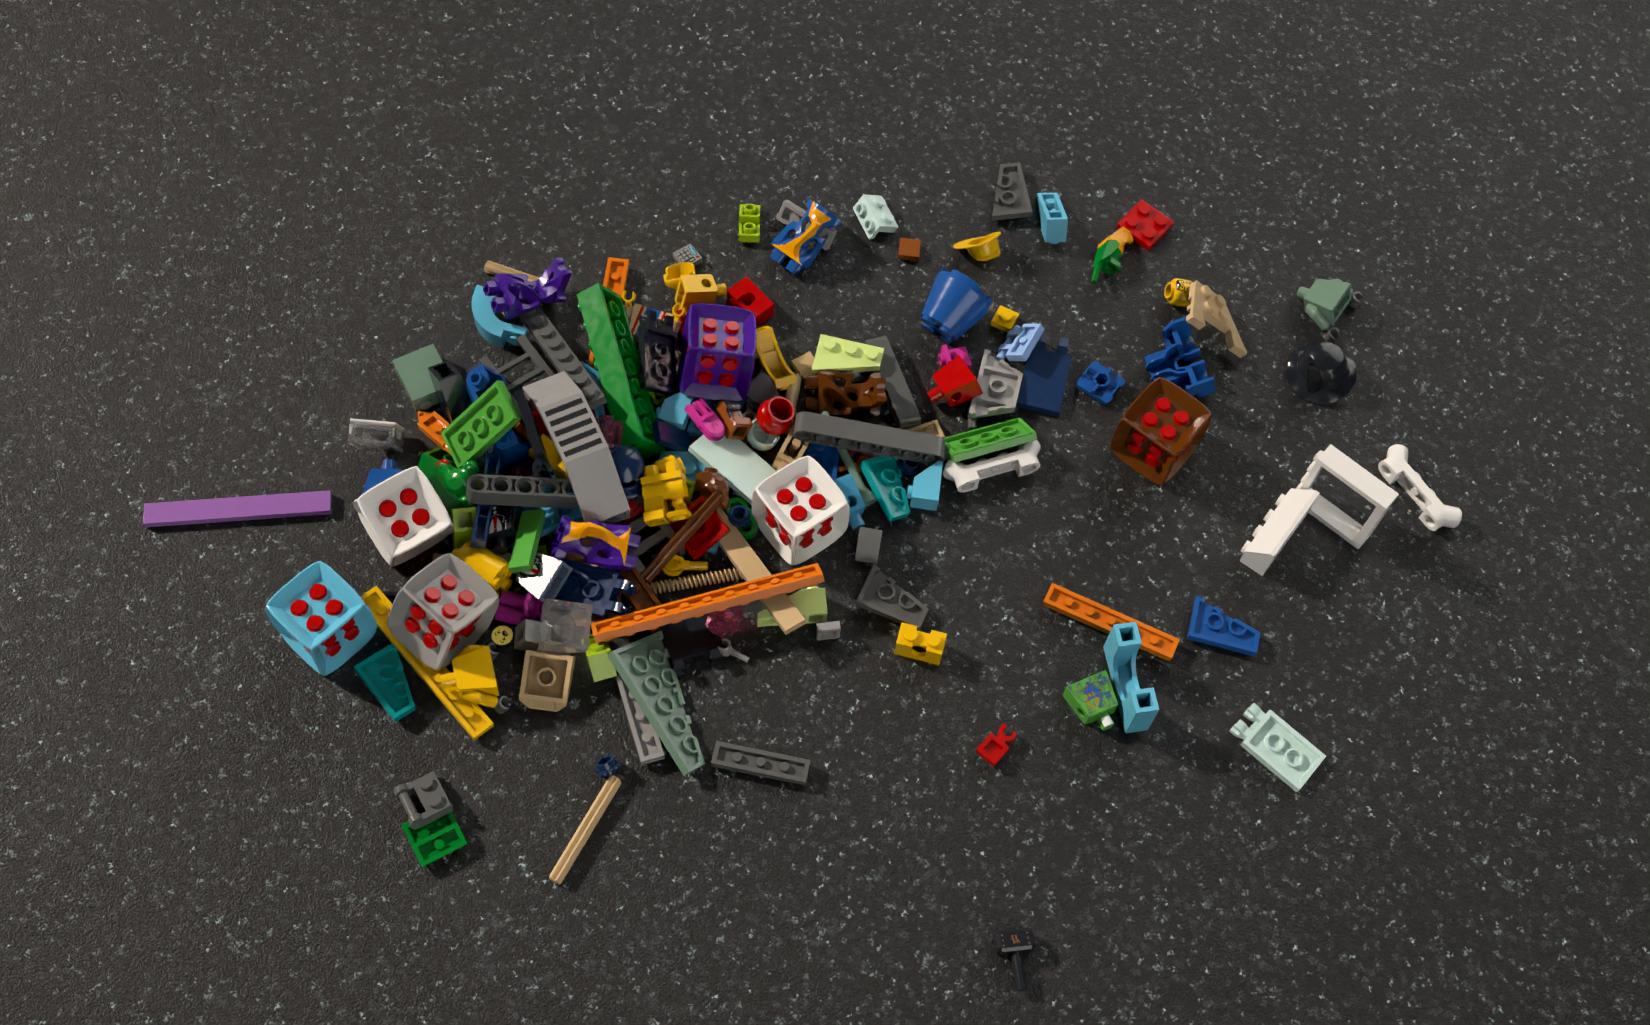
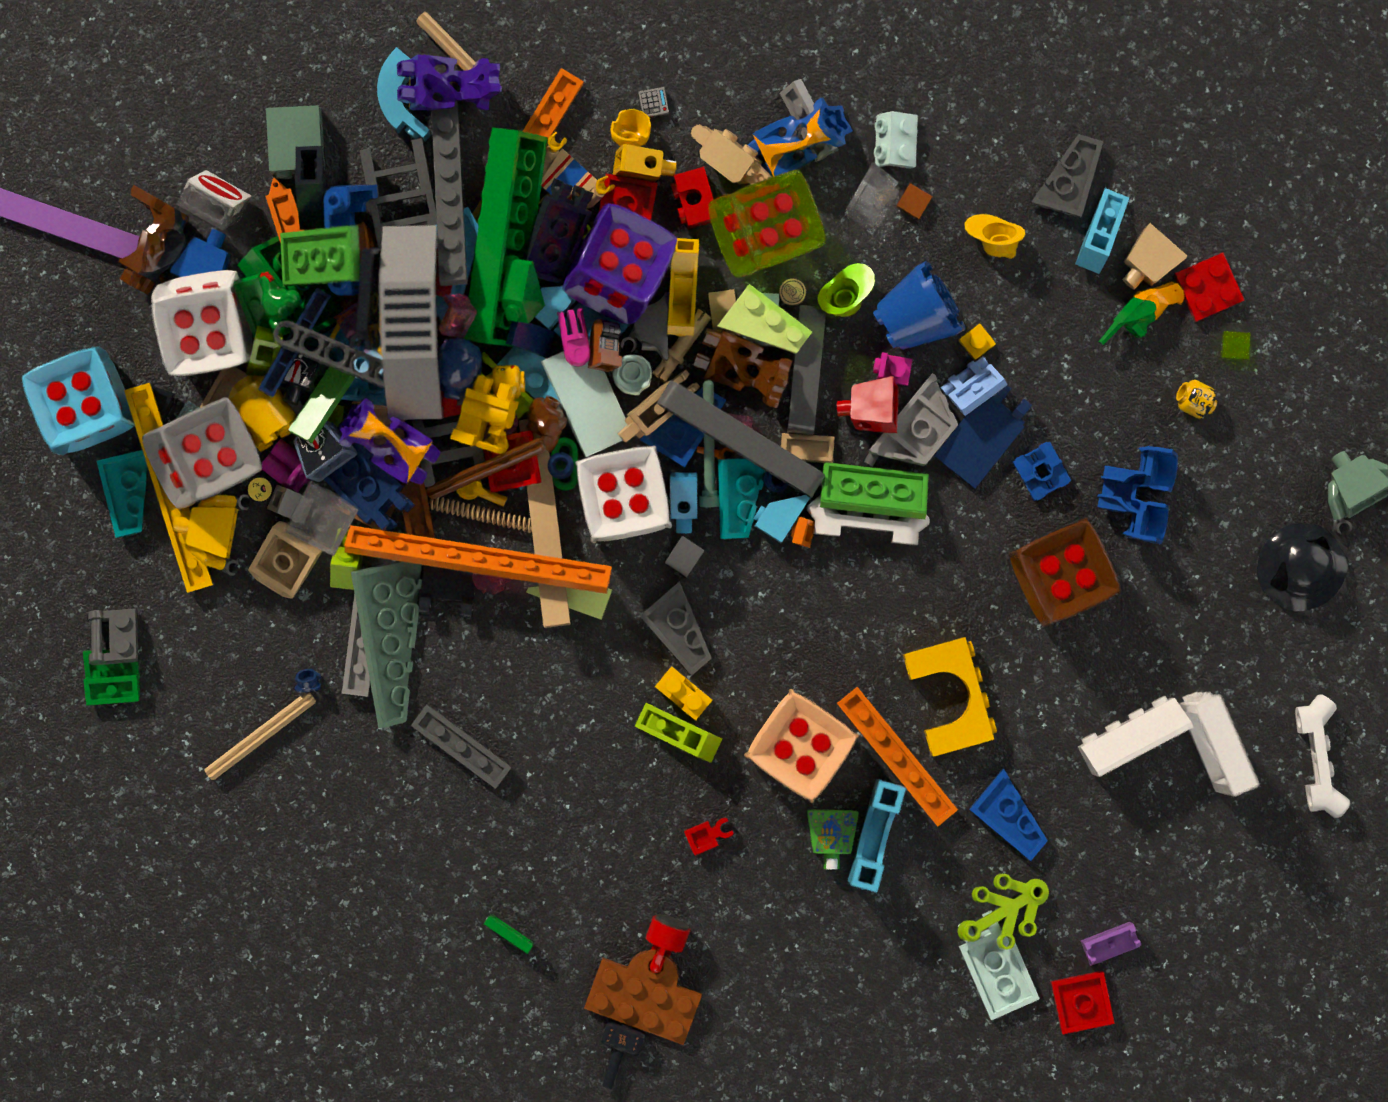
camera: 25 degrees right, 25 degrees up
(343, 483) = (154, 253): none -> reddish brown hips
(650, 397) = (521, 292): none -> green slope
(731, 651) = (489, 612): light grey hand -> none
(749, 223) = (745, 86): lime slope -> none
(763, 265) = (728, 156): none -> tan hinge
(775, 415) = (650, 367): red piece -> none
(813, 285) = (767, 223): none -> clear neon green piece
(828, 630) = (595, 635): light grey tile -> none
(854, 334) = (792, 292): none -> tan tile
(874, 896) = (509, 933): none -> green tile
(878, 253) = (871, 198): none -> clear slope
(894, 317) = (847, 290): none -> lime piece
(932, 675) = (678, 732): none -> lime slope
(949, 491) = (802, 532): none -> orange plate
(1012, 891) = (647, 989): none -> dark orange plate
(1036, 634) = (801, 745): none -> light nougat piece
(1095, 218) = (1151, 258): none -> tan torso
(1115, 533) = (974, 725): none -> yellow arch
(1185, 253) = (1235, 345): none -> clear neon green tile
(1212, 308) = (1216, 440): tan wing -> none
(1273, 678) = (1008, 910): none -> lime plant
(1353, 689) = (1110, 943): none -> medium lavender hinge
(1360, 743) = (1082, 1002): none -> red plate

